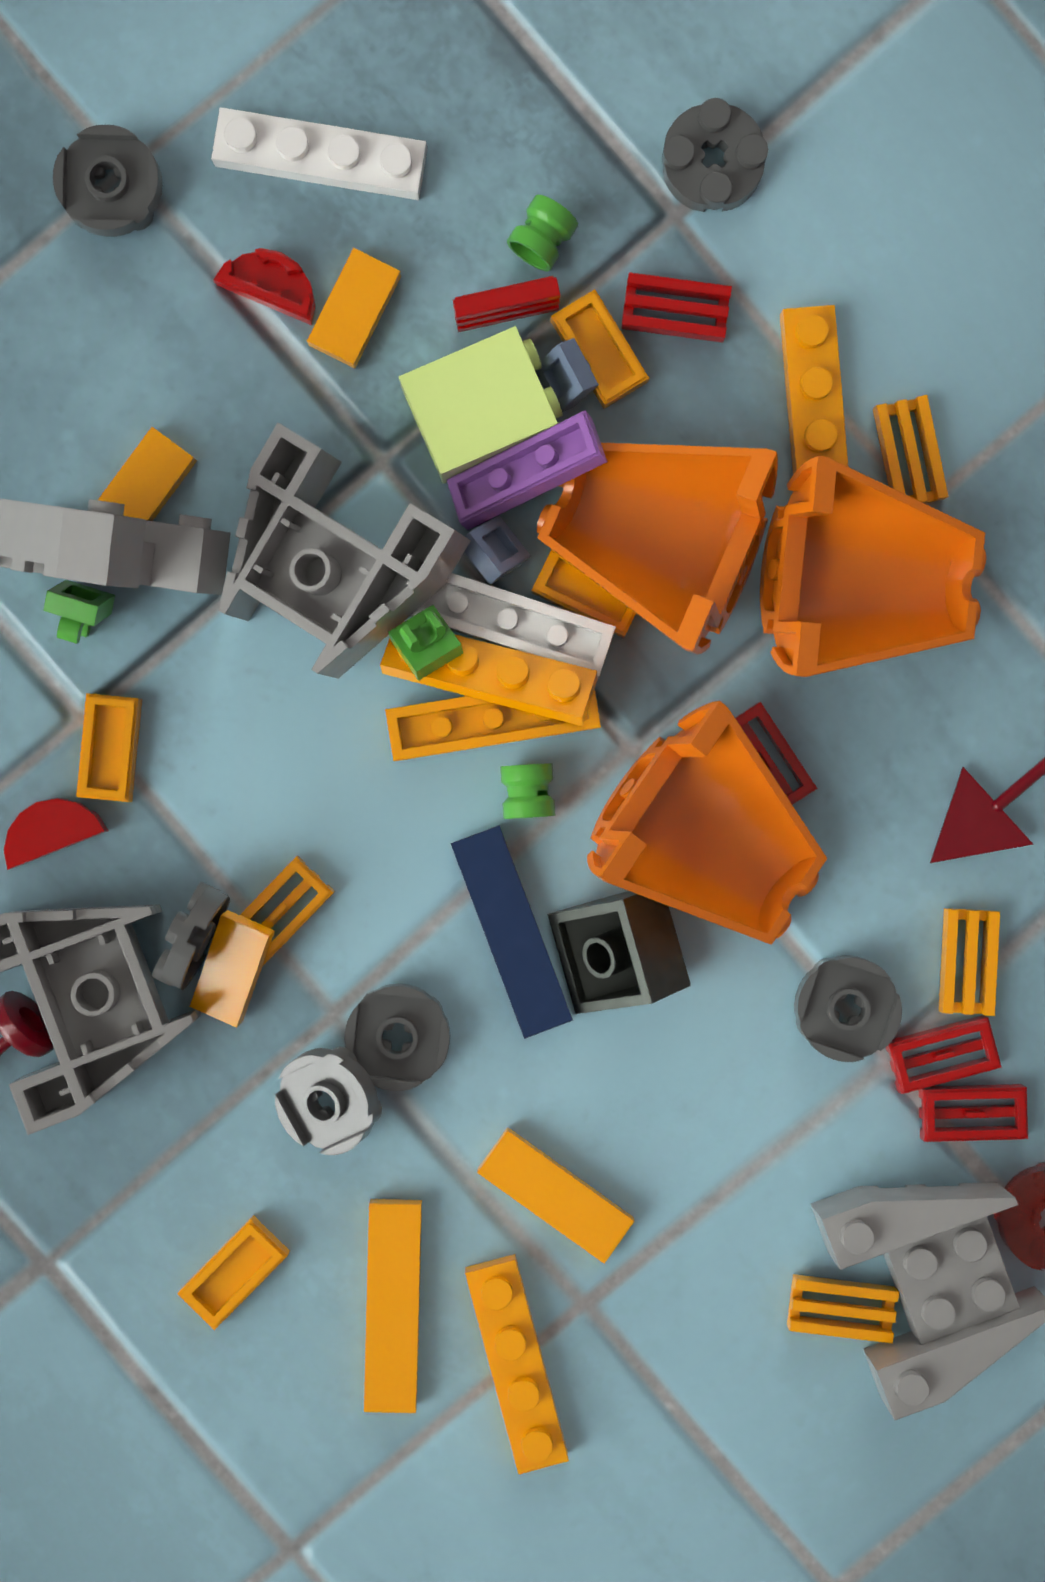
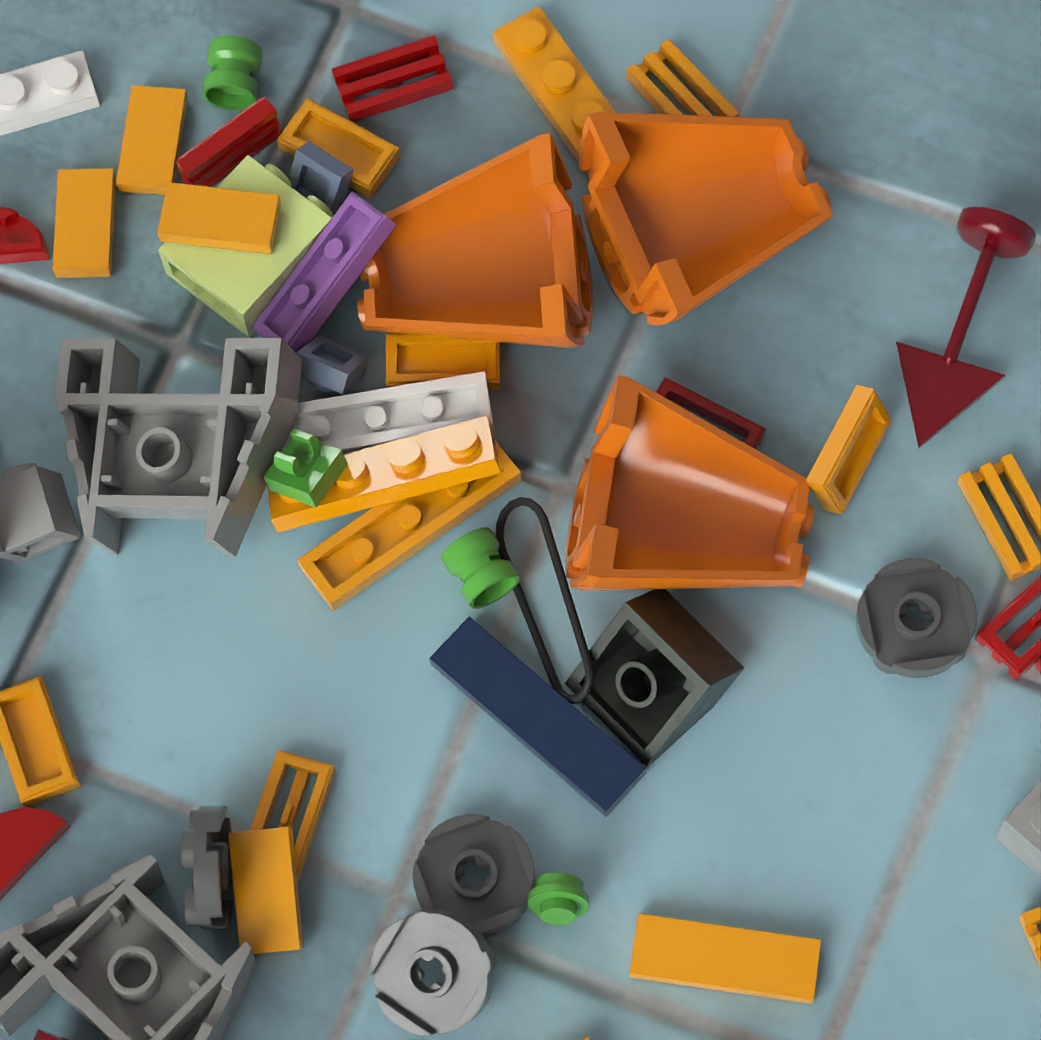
camera: 25 degrees left, 20 degrees down
(446, 259) = (151, 139): none -> light orange tile
(452, 1089) = (558, 898): none -> bright green plate
(461, 376) = (219, 218): none -> light orange tile
(583, 849) = (565, 590): none -> black piece
(873, 844) = (849, 450): none -> light orange tile

